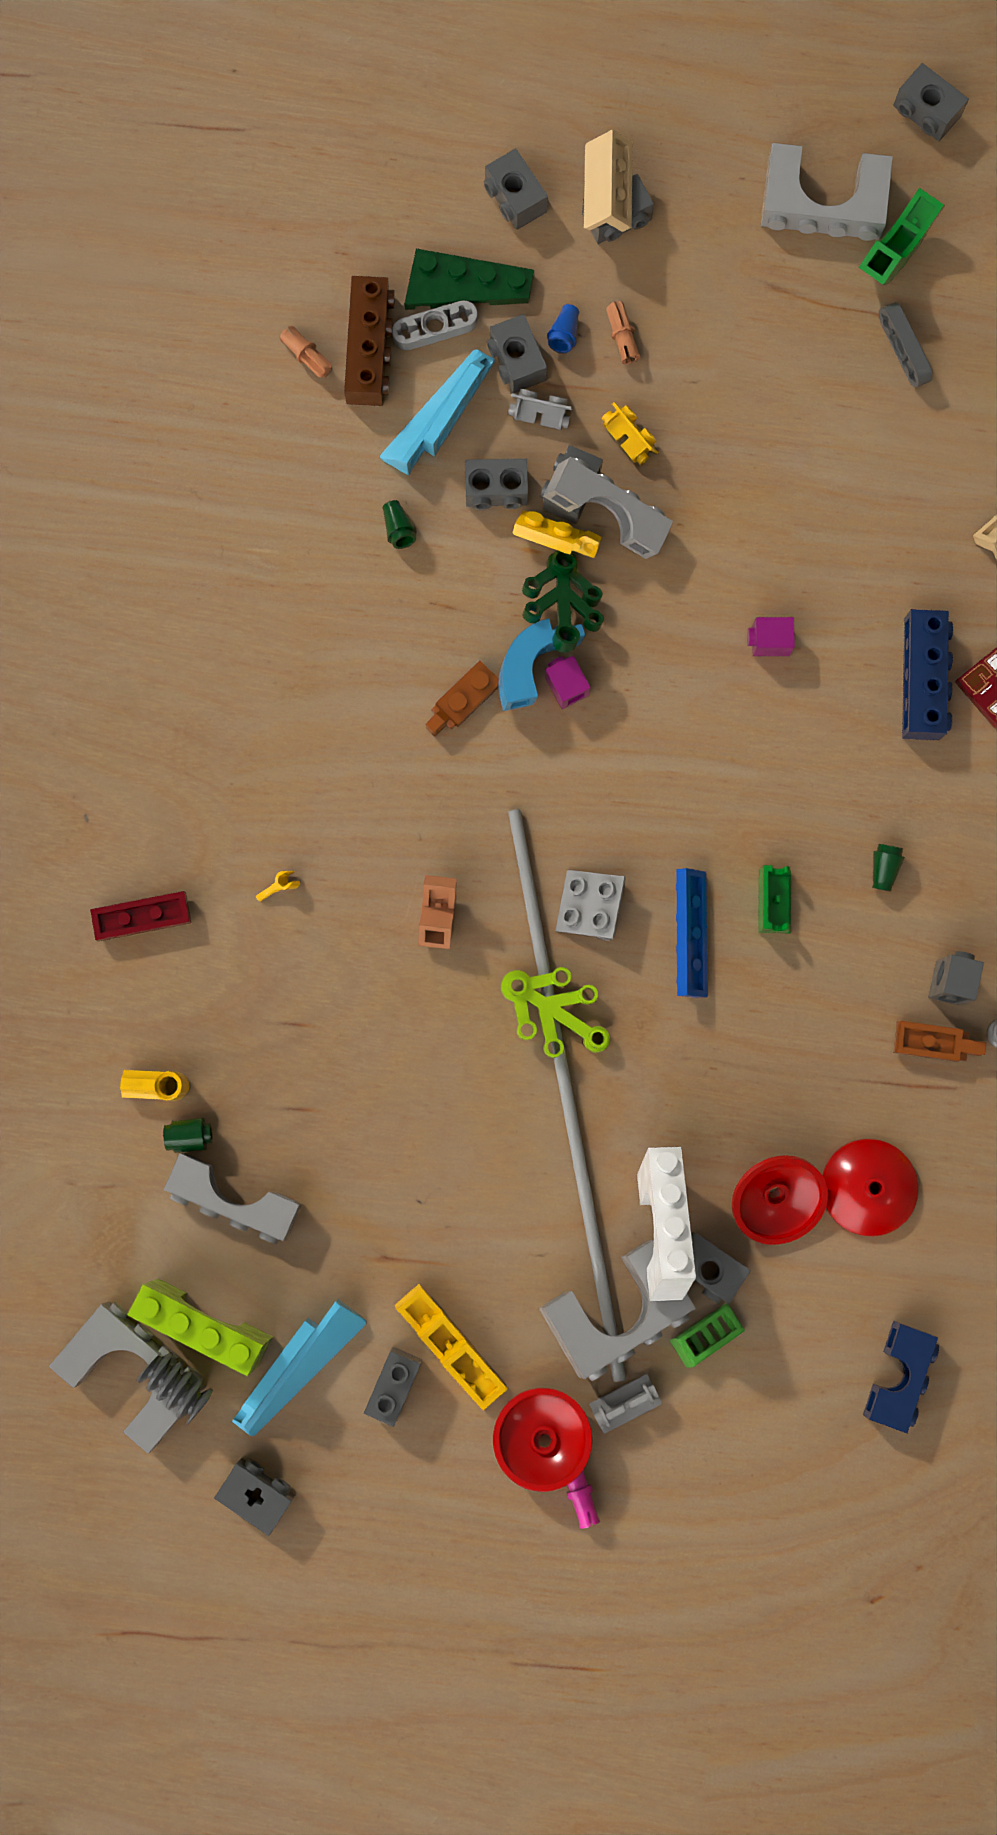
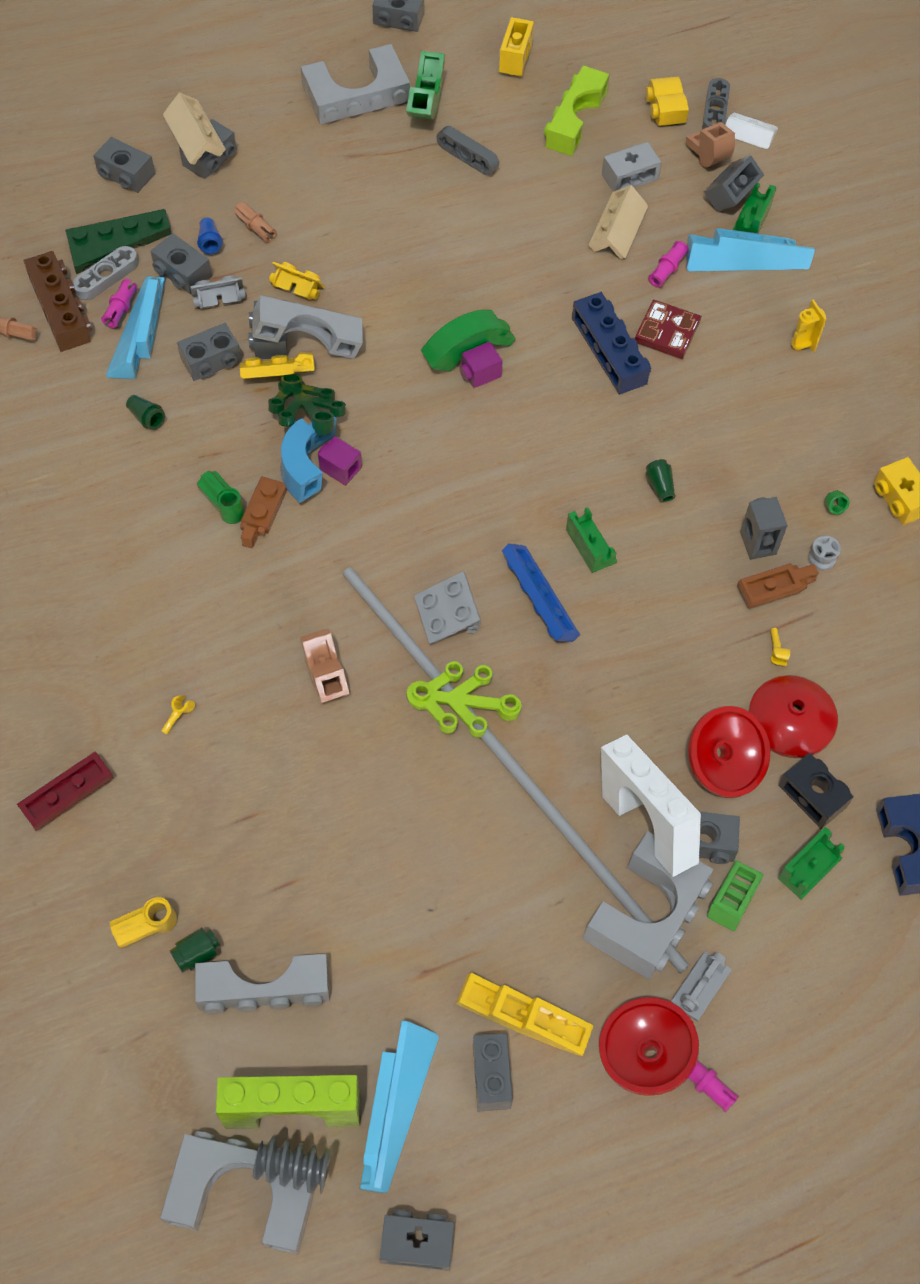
camera: 30 degrees left, 20 degrees down
(428, 665) = (222, 496): none -> green piece
(431, 373) = (119, 303): none -> dark pink pin
(771, 597) = (463, 334): none -> green arch
(795, 1345) = (811, 864): none -> green hinge
(830, 1263) = (818, 806): none -> black brick
(893, 1118) = (779, 655): none -> yellow hand

